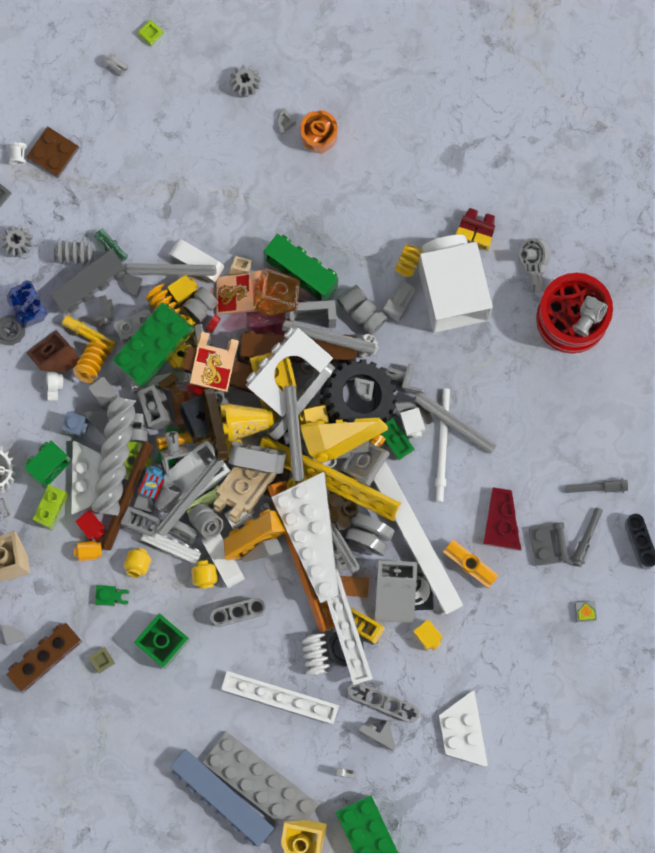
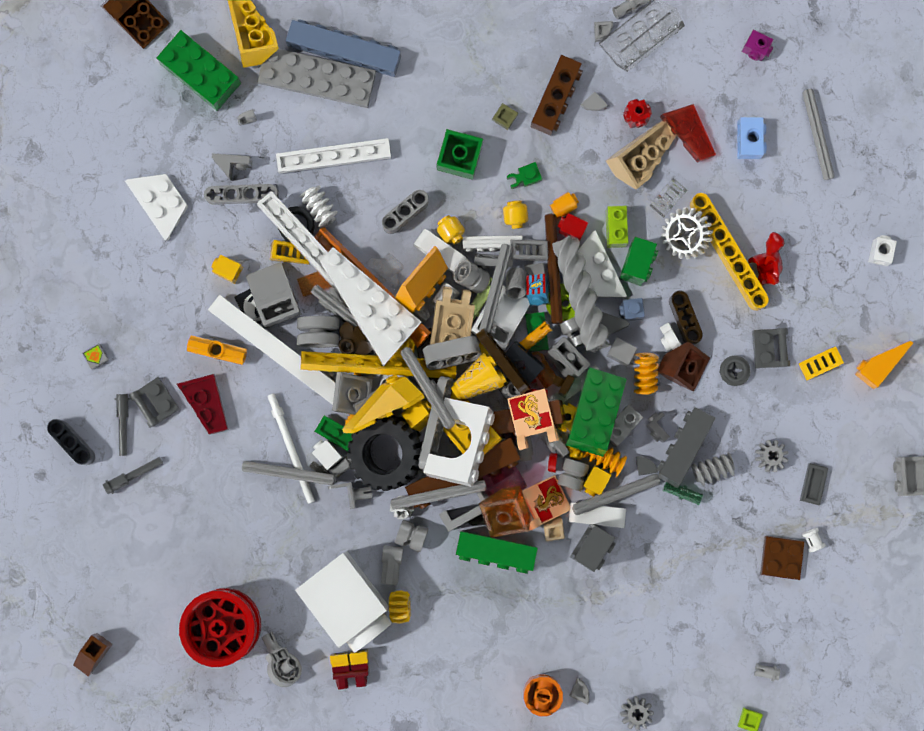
camera: 155 degrees right, 5 degrees up
(25, 391) = (682, 324): none -> dark brown beam
(26, 304) = (731, 399): clear blue brick -> none
(79, 328) = (662, 401): yellow axle -> none
(173, 450) = (531, 324): light grey bracket -> none
(215, 230) = (593, 548): none -> dark grey brick
(264, 549) = (403, 271): light grey slope -> none
(352, 299) = (435, 545): light grey piece -> none
(364, 388) = (382, 459): light grey tile -> none
(591, 313) = (199, 628): light grey connector -> none

